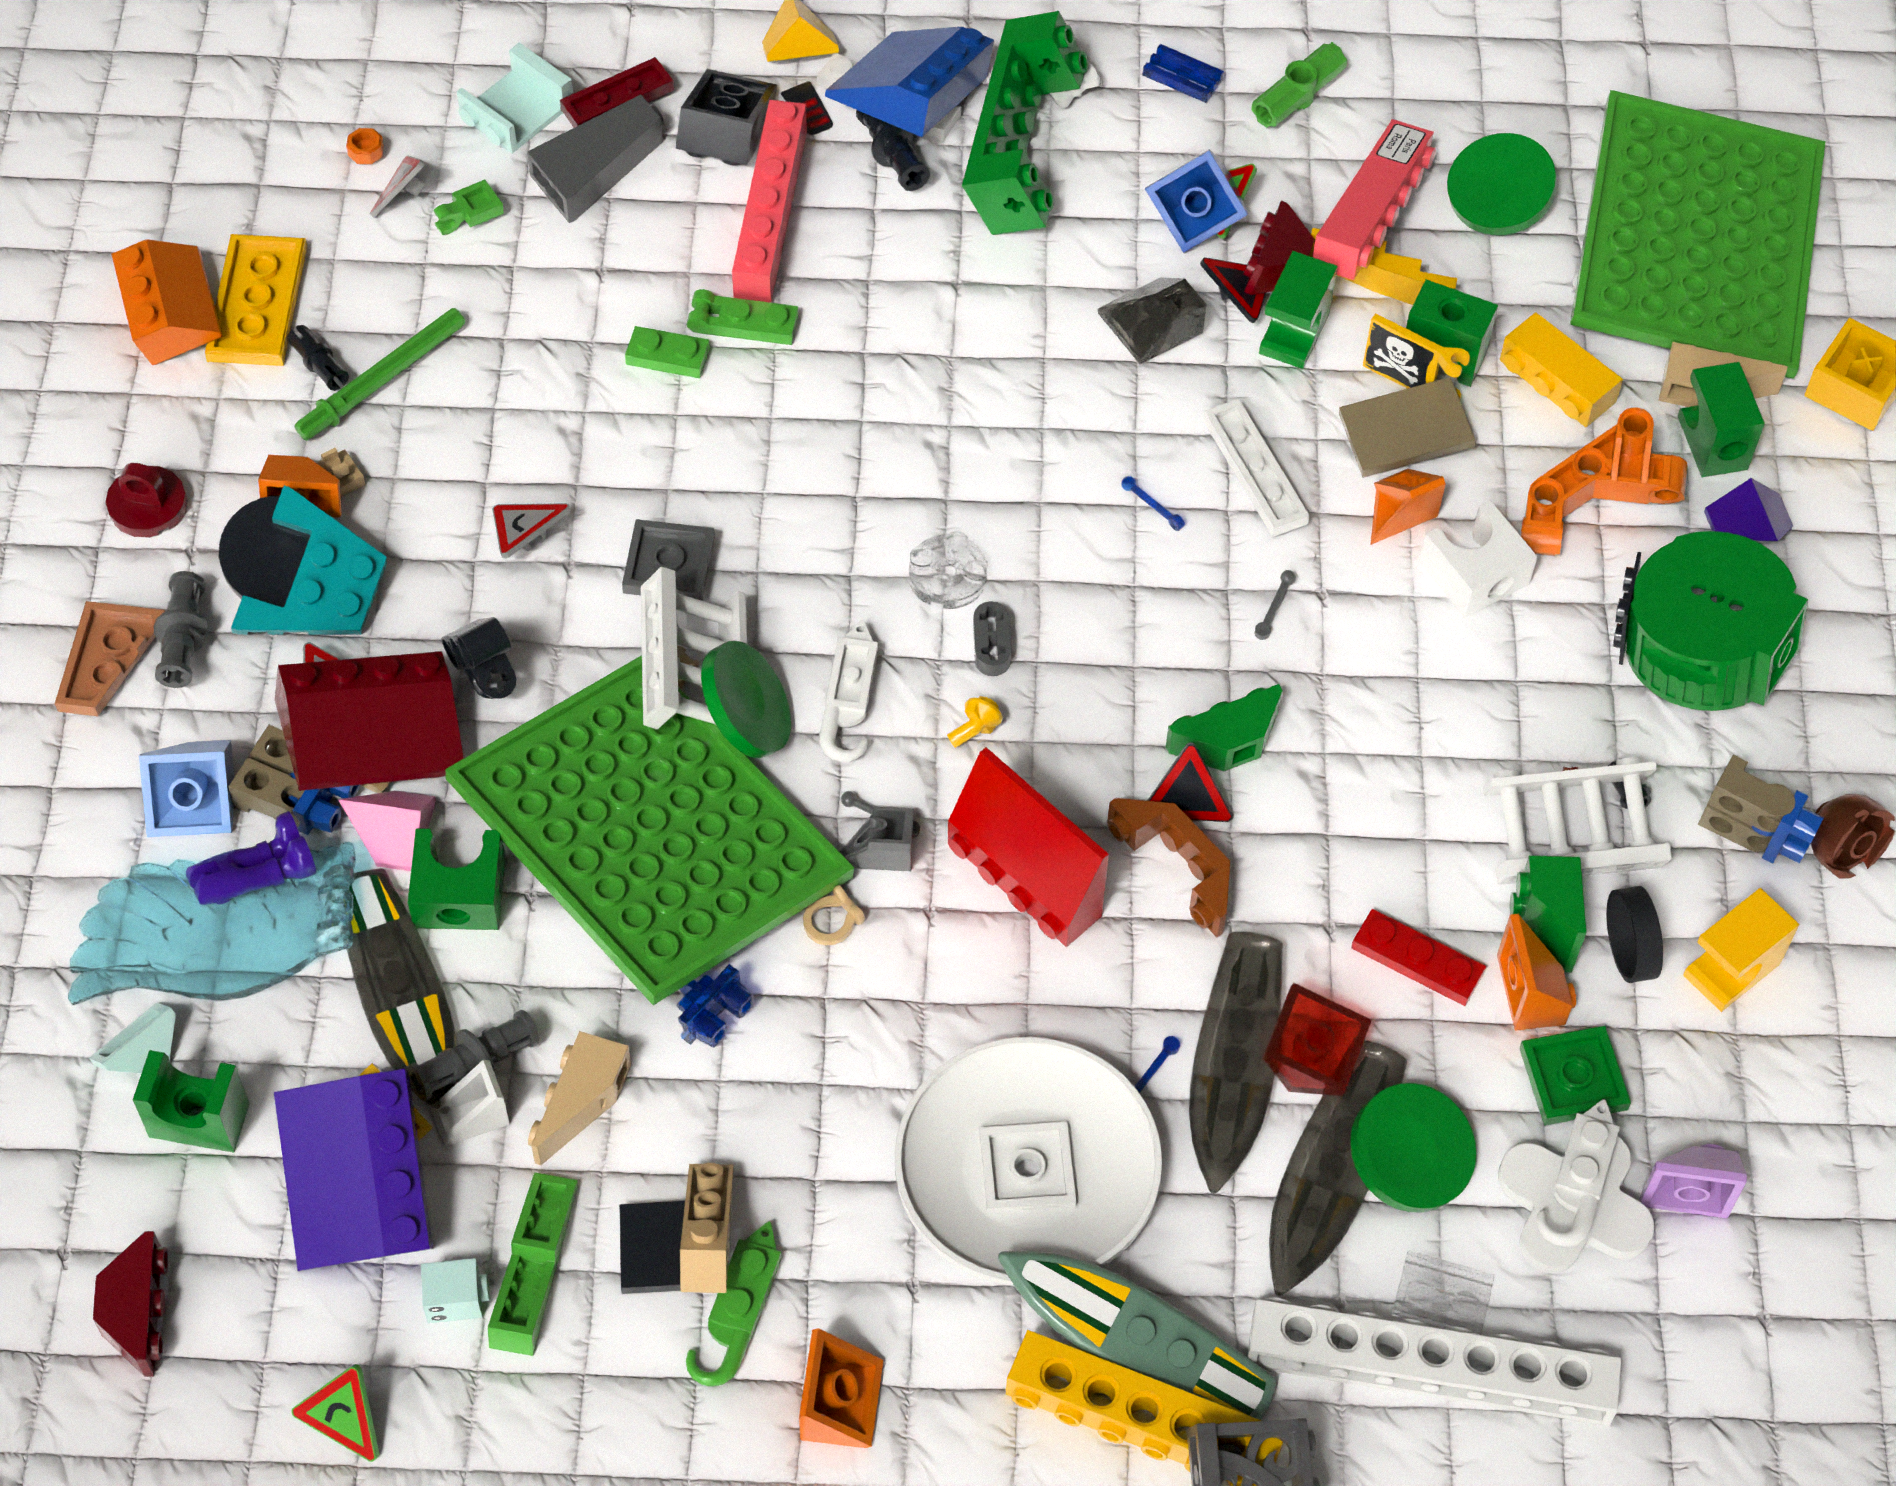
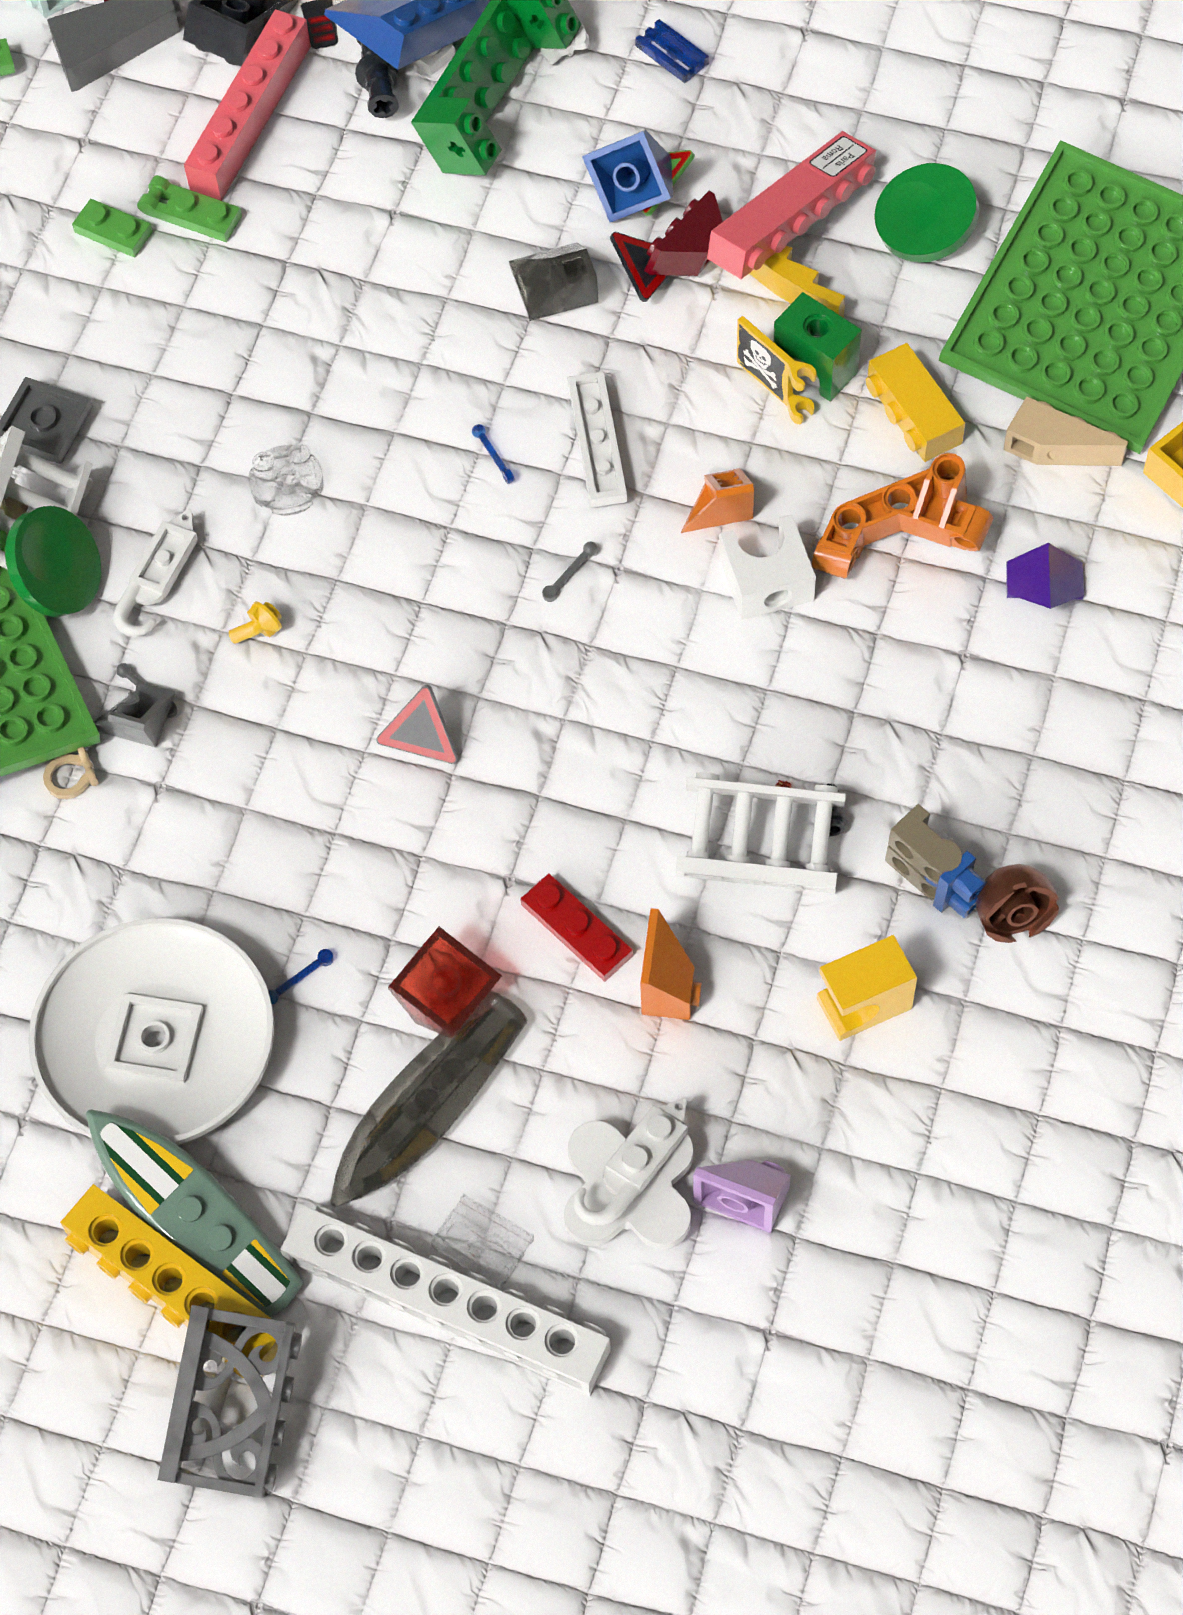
camera: 20 degrees right, 5 degrees up
(1000, 638) = (309, 551): dark grey beam -> none
(1028, 850) = (247, 755): red slope -> none
(1142, 820) = (372, 748): dark orange slope -> none
(1229, 731) = (481, 680): green slope -> none
(1229, 1075) = (358, 1003): clear smoke piece -> none
(1298, 309) = (688, 297): green piece -> none
(1299, 85) = (773, 81): bright green piece -> none
(1406, 427) = (750, 428): dark tan tile -> none
(1413, 1147) = (500, 1101): green piece -> none
(1553, 905) = (705, 907): green slope -> none
(1574, 1074) = (675, 1066): green plate -> none
(1634, 934) = (771, 951): black tyre -> none
(1710, 621) = (948, 672): green piece -> none
(1724, 423) = (1043, 480): green piece -> none

